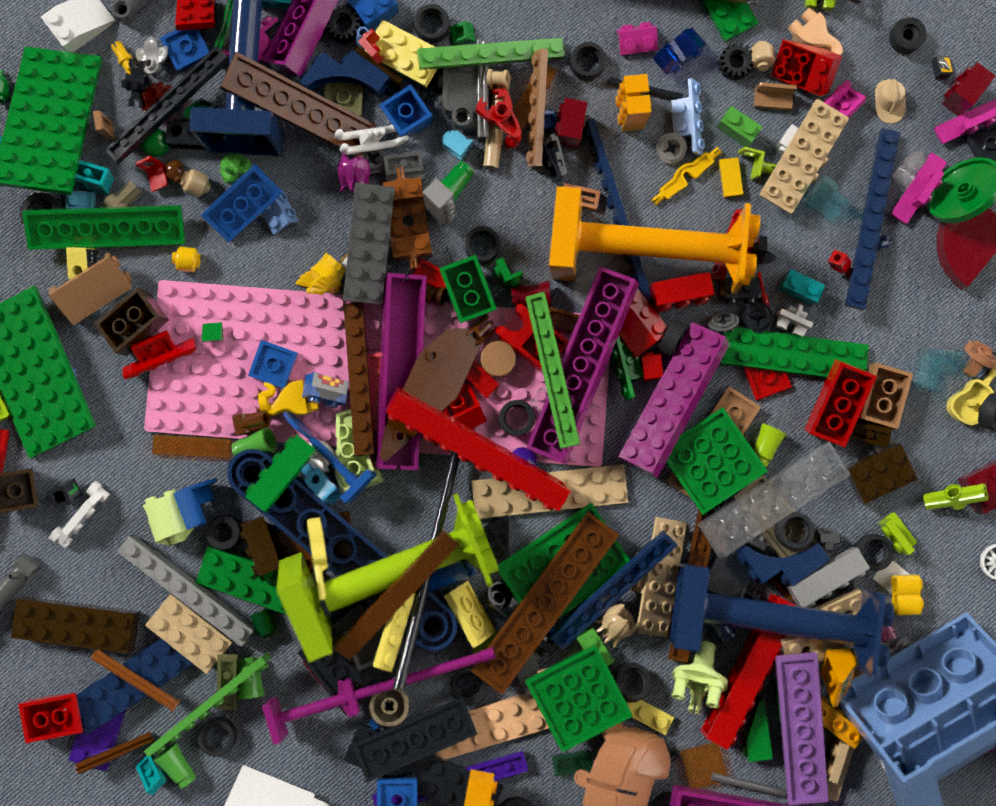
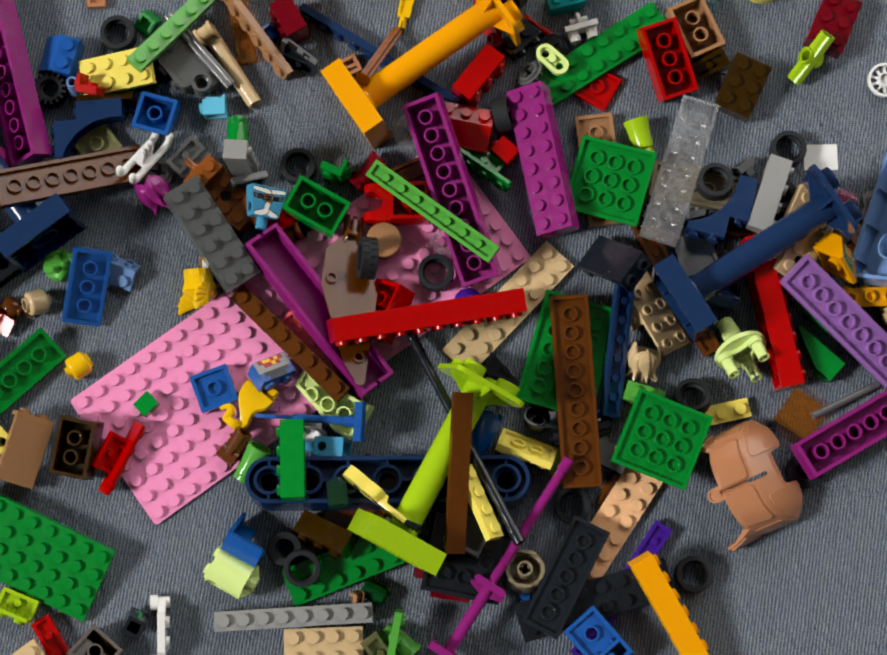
camera: 30 degrees left, 5 degrees down
(191, 446) = (203, 506): clear orange tile -> none
(212, 570) = (299, 582): none -> black tyre
(248, 615) = (358, 595): none -> medium nougat hand
(292, 529) = (337, 493): none -> clear green brick
(429, 253) = (264, 203): none -> dark azure torso
(433, 223) = (242, 181): none -> dark grey tile
(471, 364) = (367, 258): none -> black tyre
(481, 380) = (389, 268): red tile -> none
(502, 116) = (233, 57): red animal -> none
(507, 694) = (607, 488): none -> reddish brown pin
(571, 762) = (698, 498): clear green plate -> none
(588, 219) = (363, 78): none -> dark orange axle
(660, 530) = (615, 262): none -> black panel
(750, 327) = (555, 58): none -> yellowish green plate
(898, 533) = (793, 120): lime bracket -> none
(906, 594) = (838, 159): yellow brick -> none

